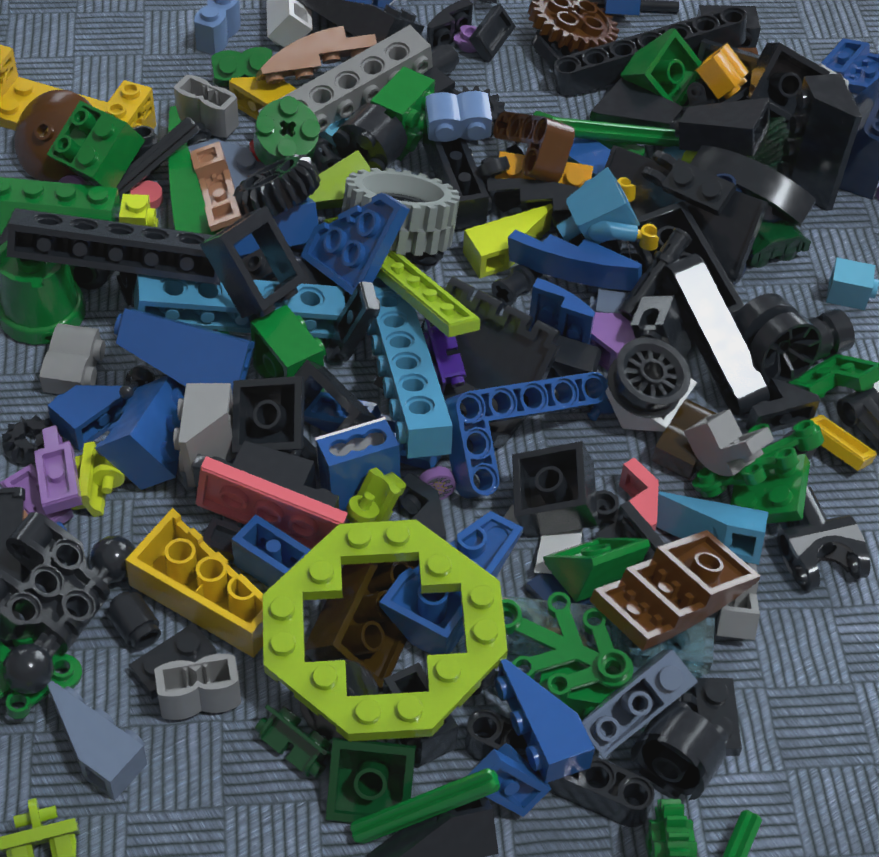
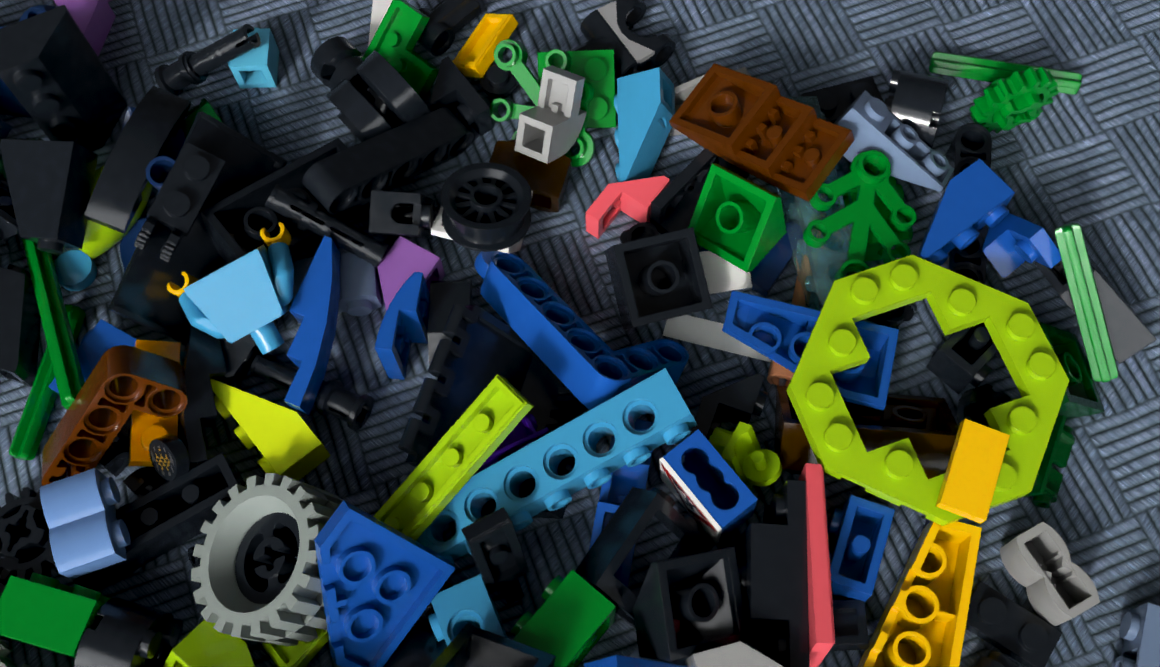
camera: 100 degrees left, 15 degrees up
(294, 612) = (973, 471): none -> yellow tile
(843, 240) = (194, 67): none -> black pin

